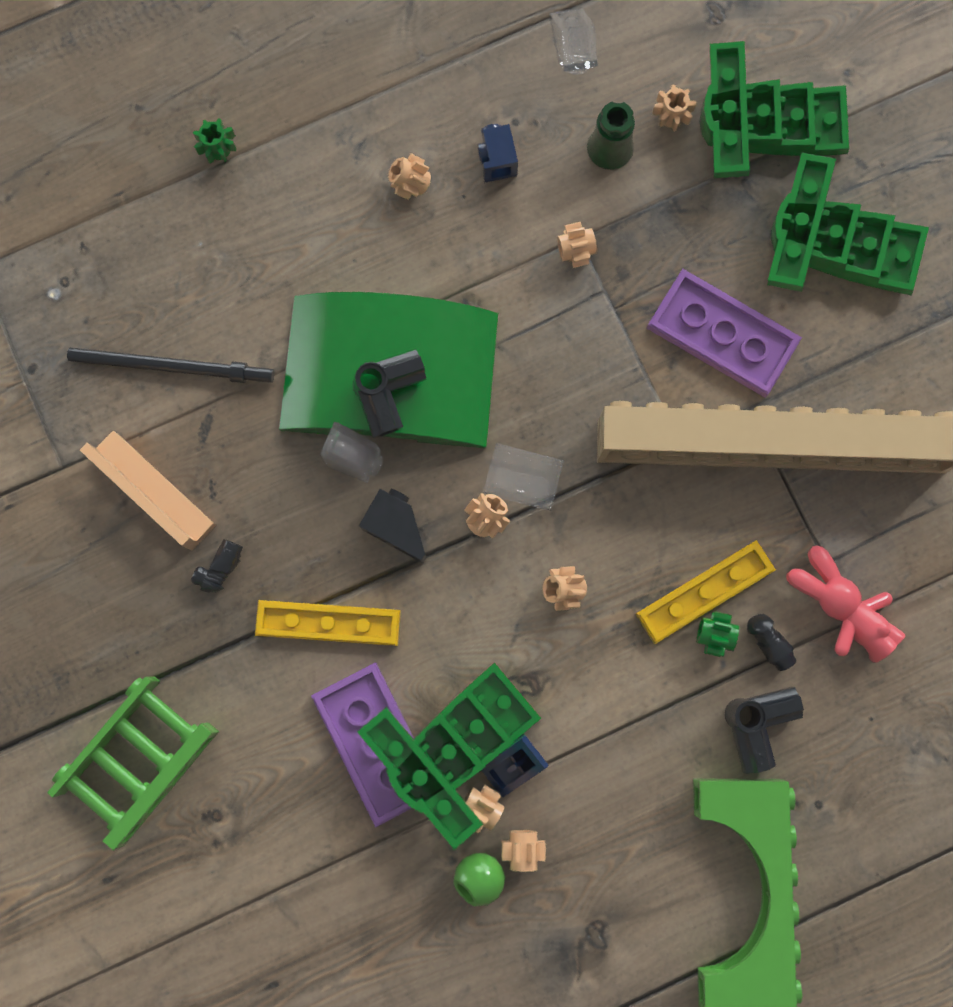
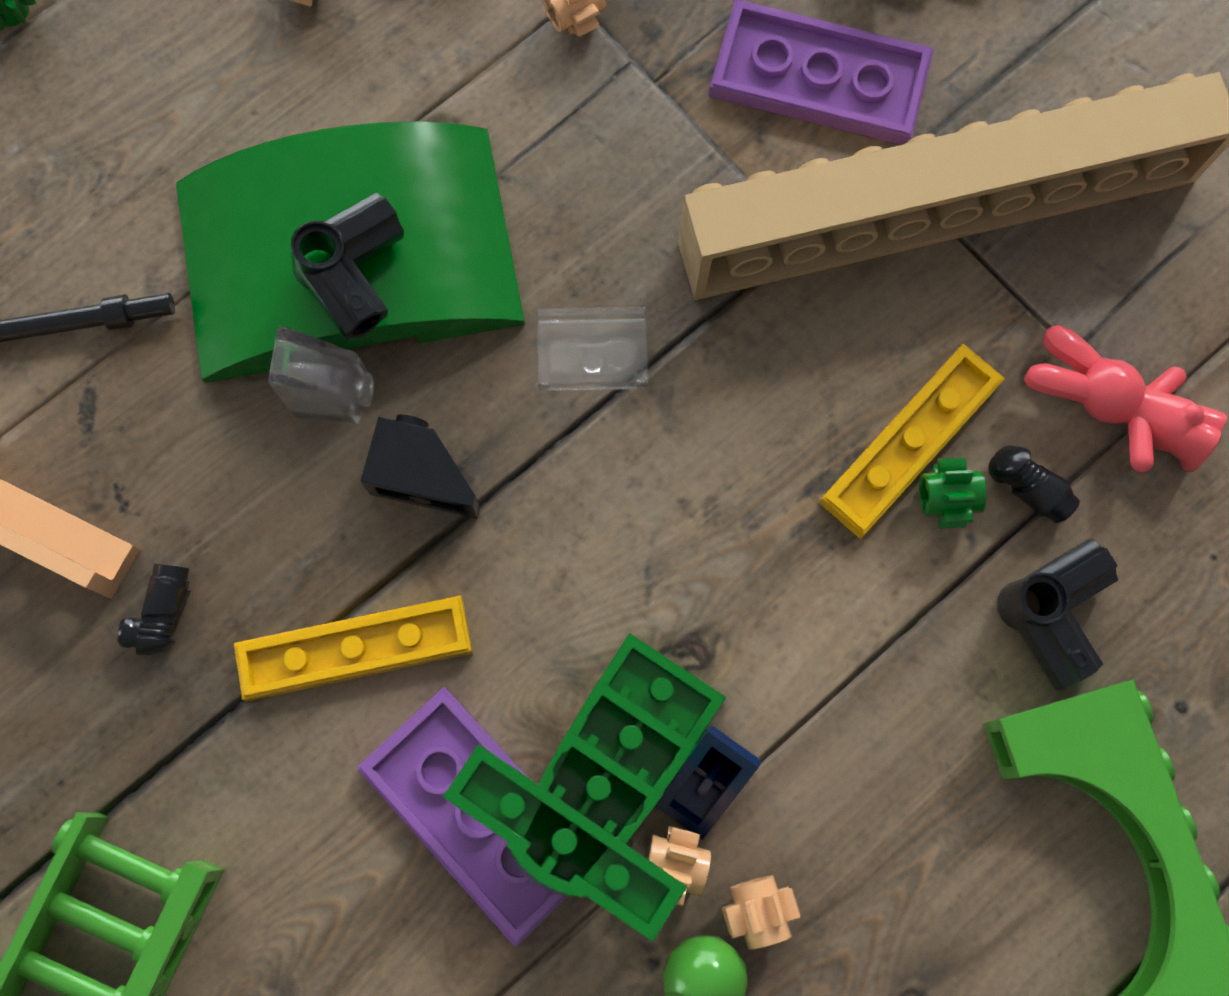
camera: 20 degrees left, 5 degrees down
(487, 515) = (554, 415): light nougat gear -> none
(564, 588) = (703, 490): light nougat gear -> none

